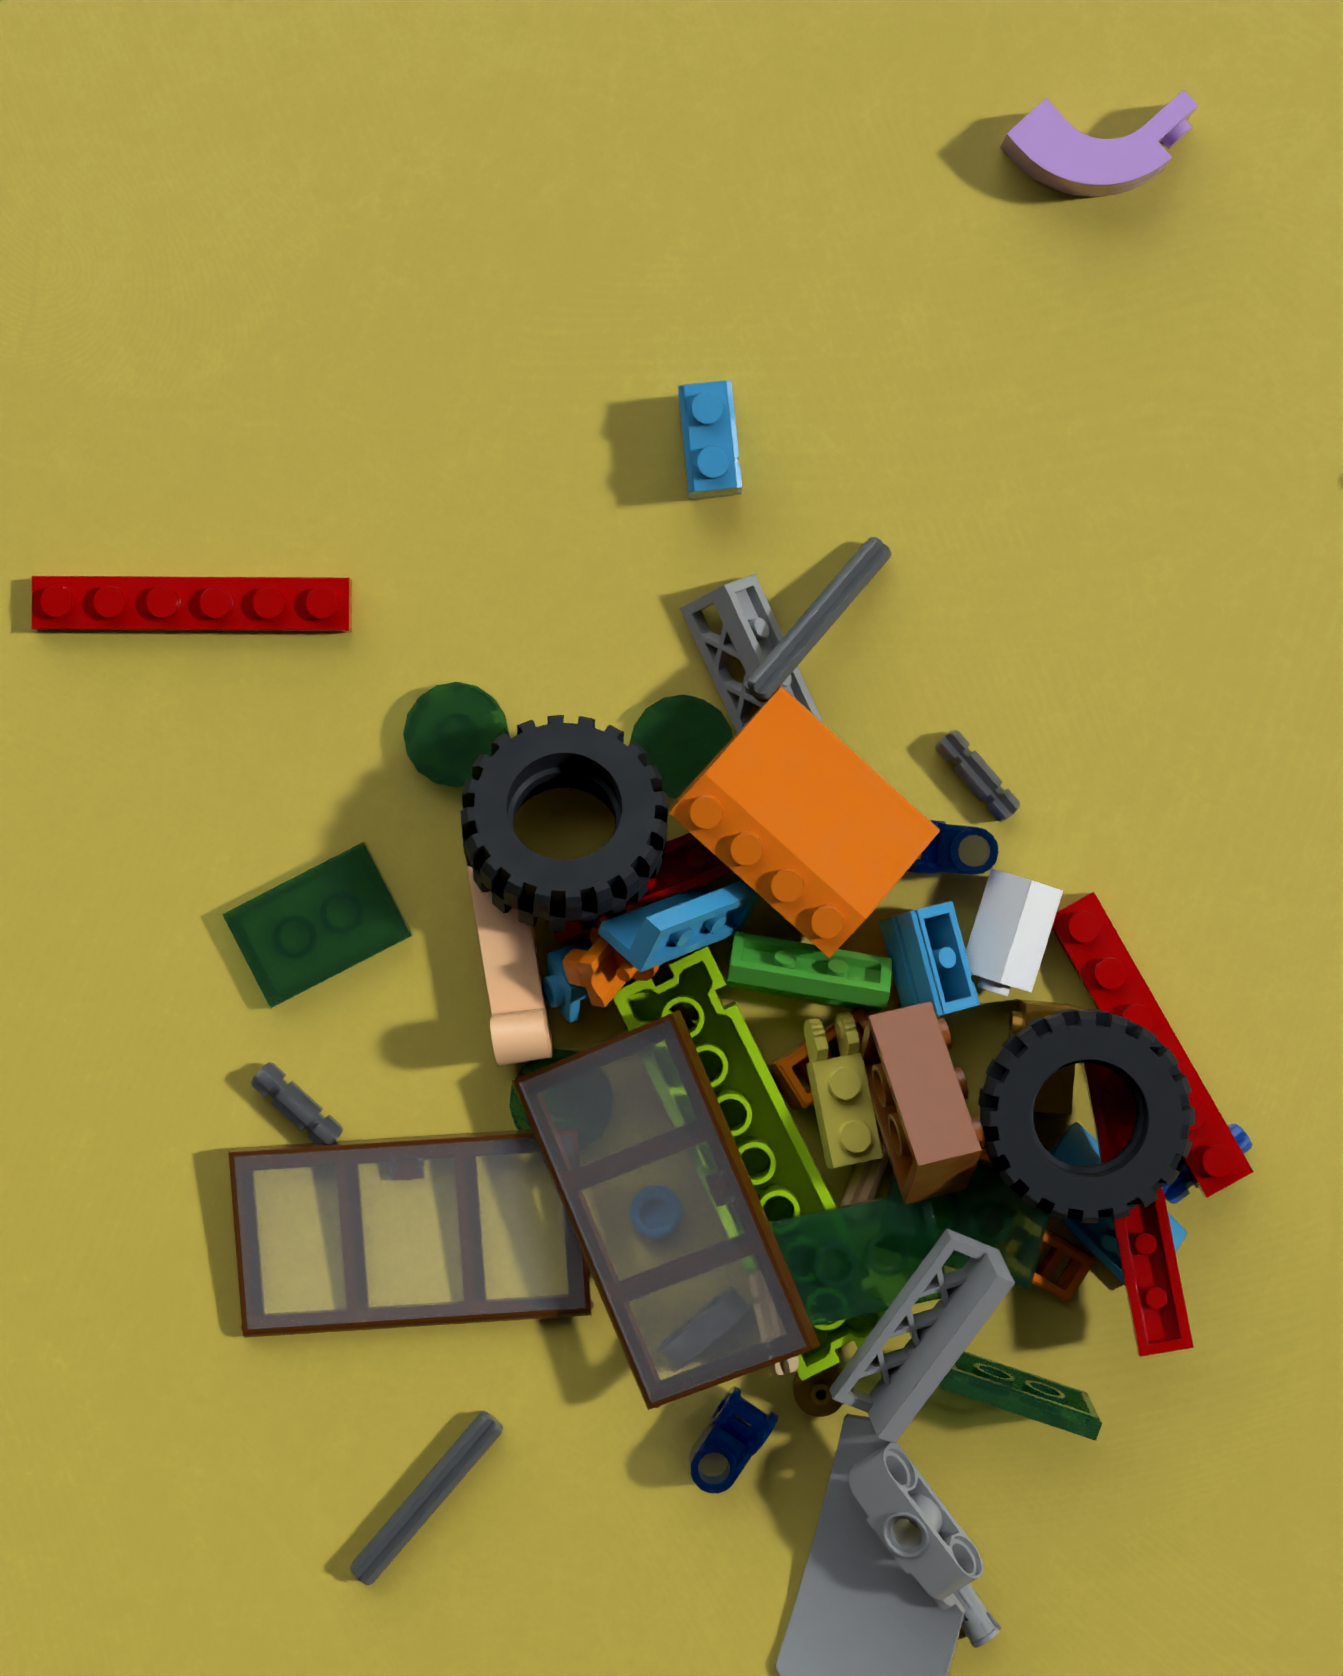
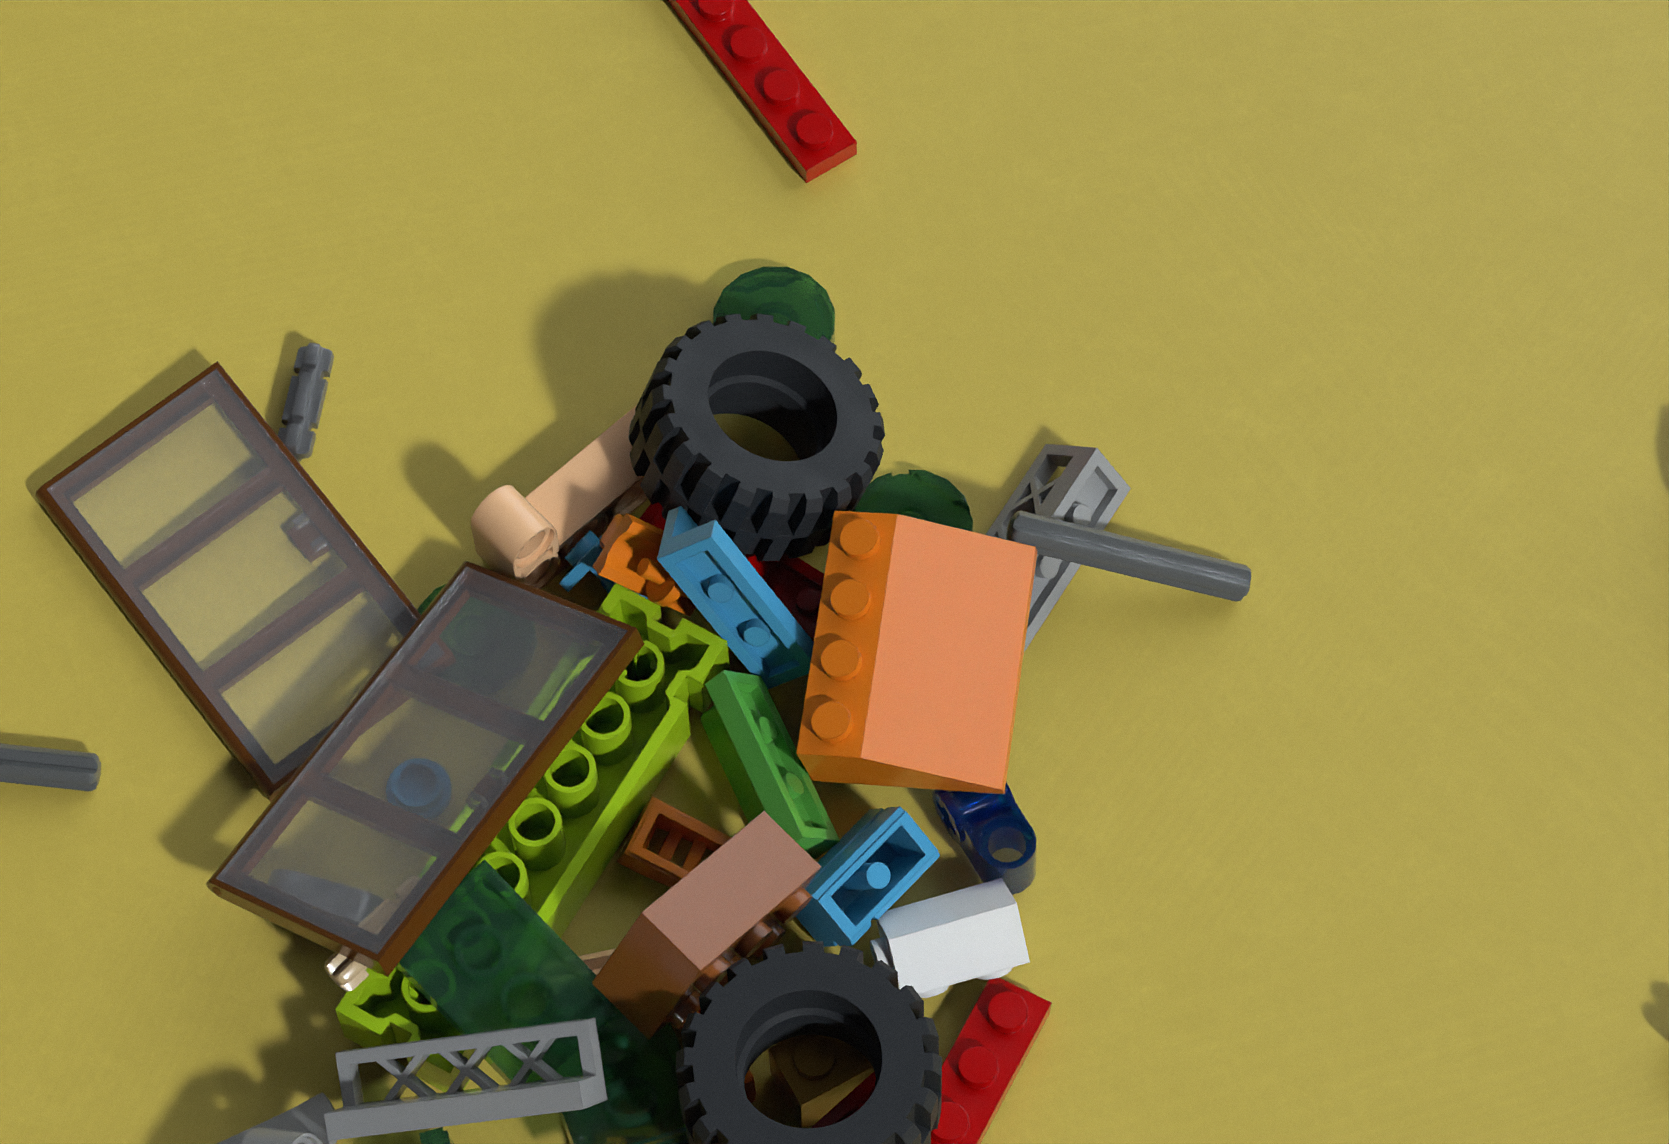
camera: 55 degrees right, 25 degrees down
(317, 924) = (499, 317): clear green tile -> none
(710, 439) = (1226, 360): dark azure brick -> none
(731, 1438) = (225, 1006): clear blue piece -> none
(812, 1402) = (321, 1070): pearl gold tile -> none
(841, 1095) = (651, 874): light yellow hinge -> none
(977, 775) = (1086, 818): flat silver axle -> none

